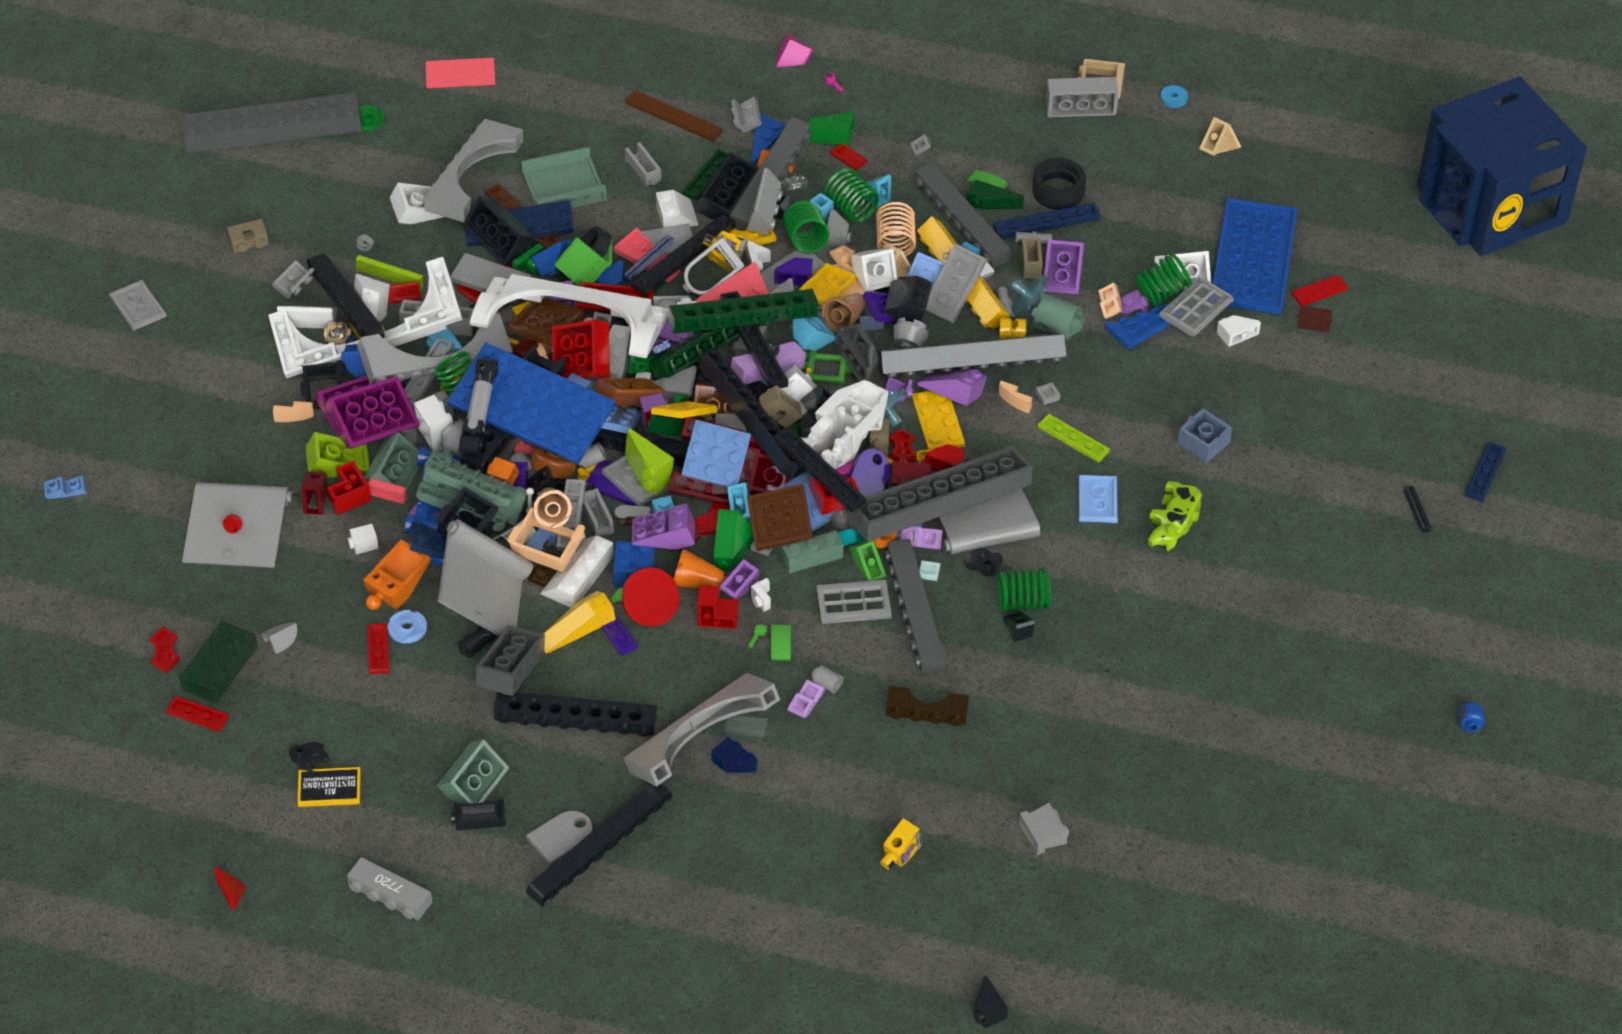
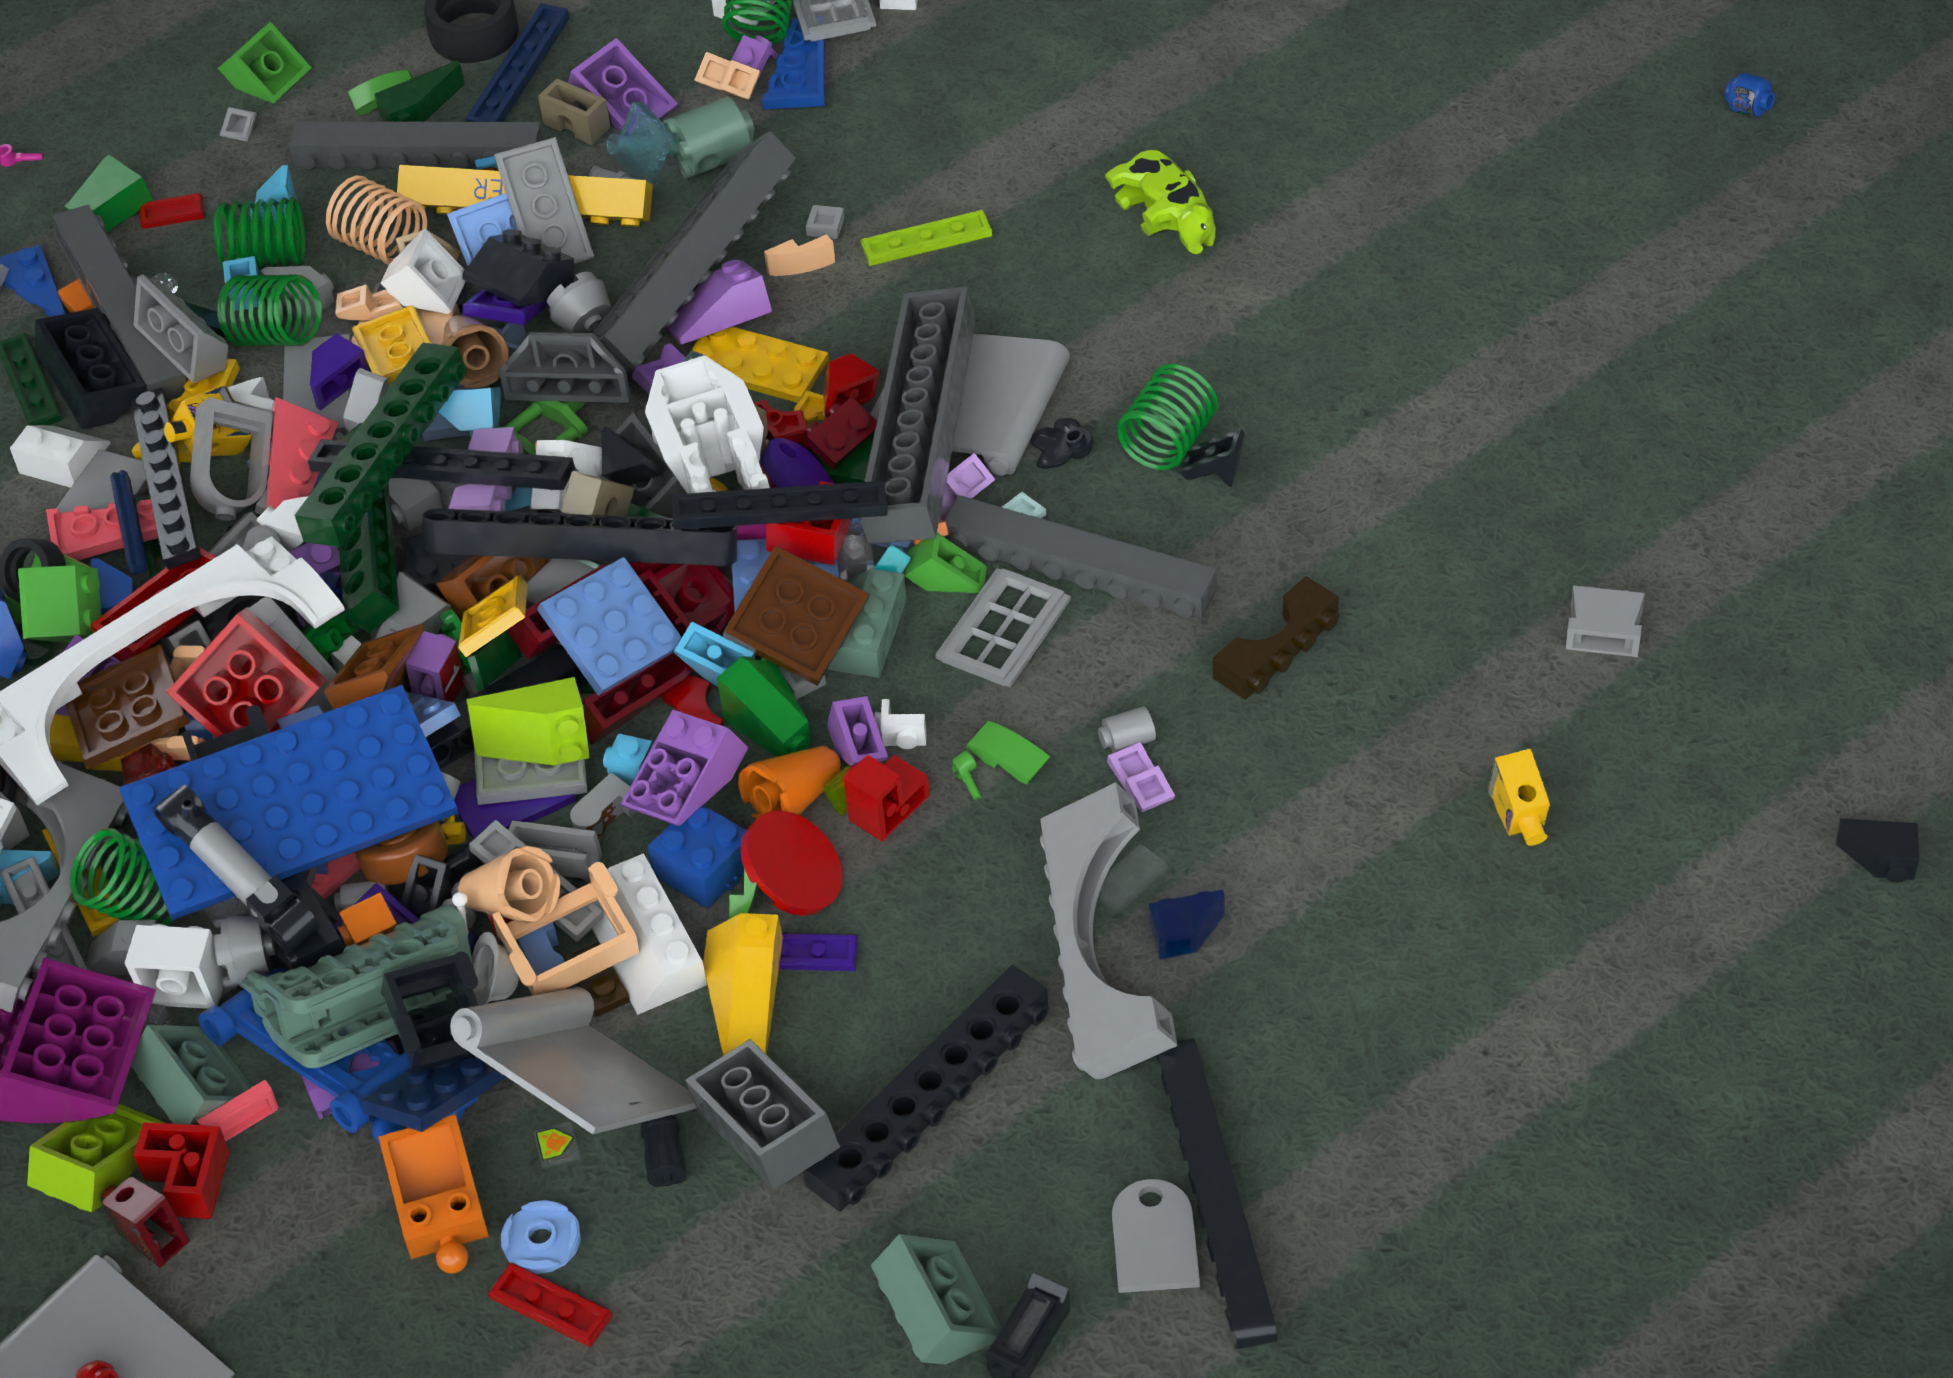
camera: 50 degrees left, 0 degrees up
(363, 539) = (306, 1202): white brick -> none
(963, 130) = (265, 65): none -> bright green slope
(1011, 328) = (677, 196): yellow wheel -> none
(1043, 237) = (529, 99): light grey pin -> none
(1098, 498) = (1057, 267): light blue tile -> none
(1204, 435) = (1058, 100): sand blue brick -> none

